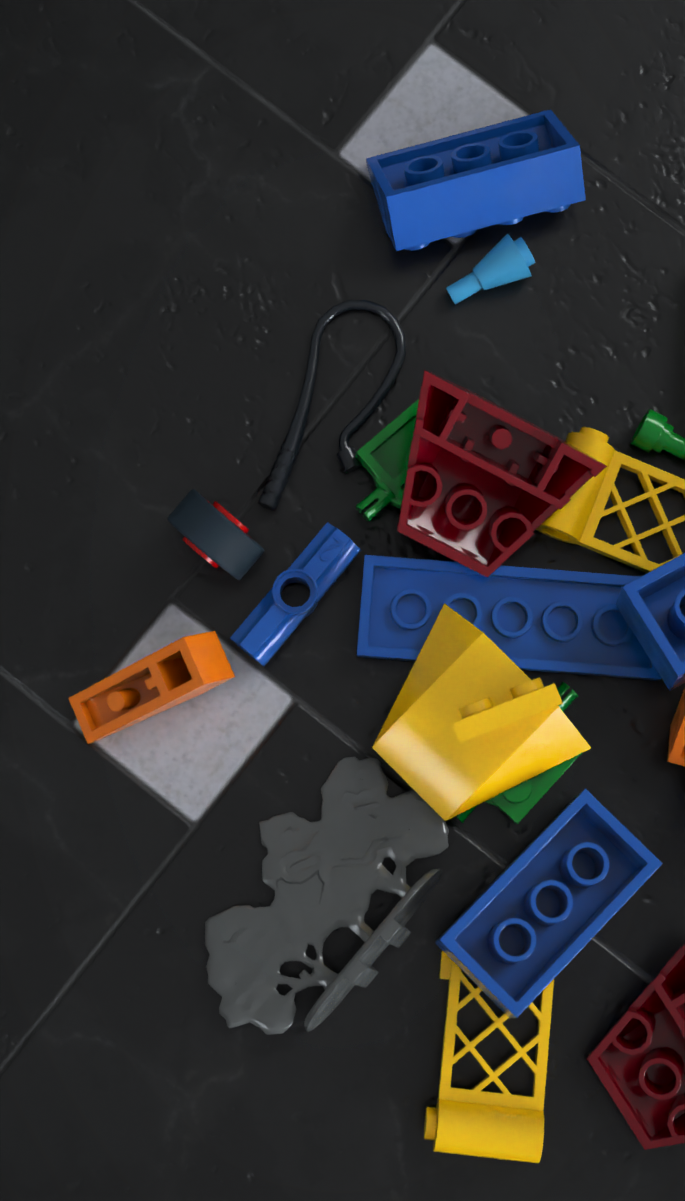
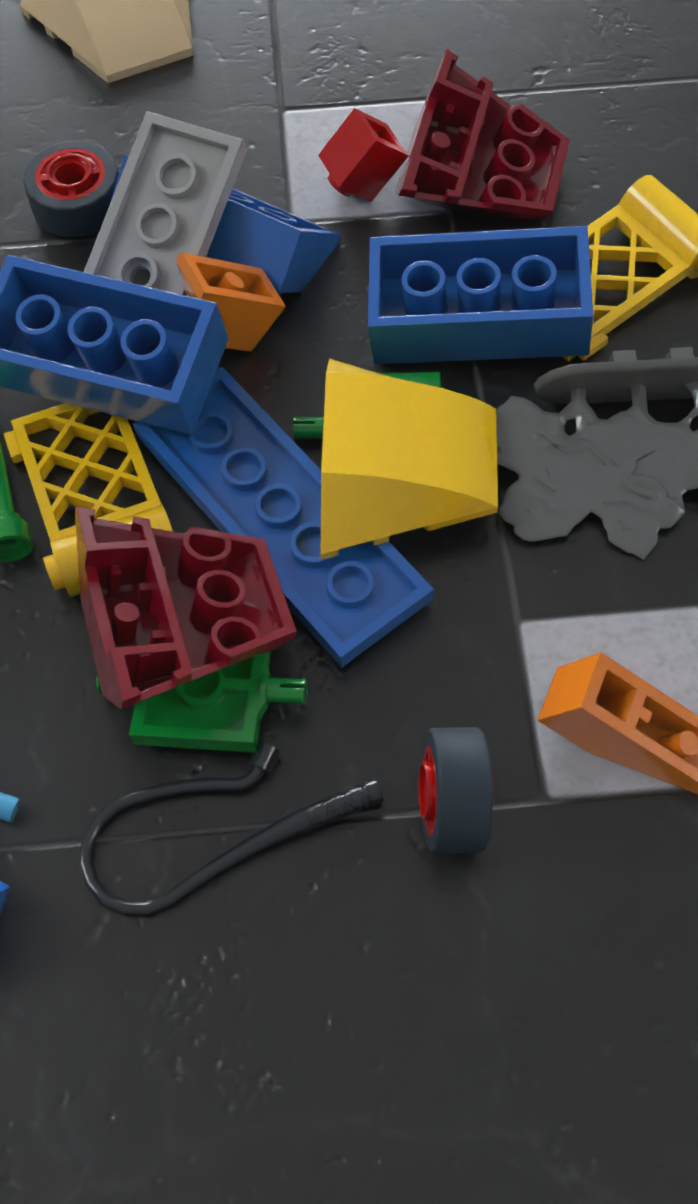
camera: 130 degrees left, 20 degrees down
(315, 568) = (473, 679): blue piece -> none
(527, 701) = (374, 378): yellow plate -> none

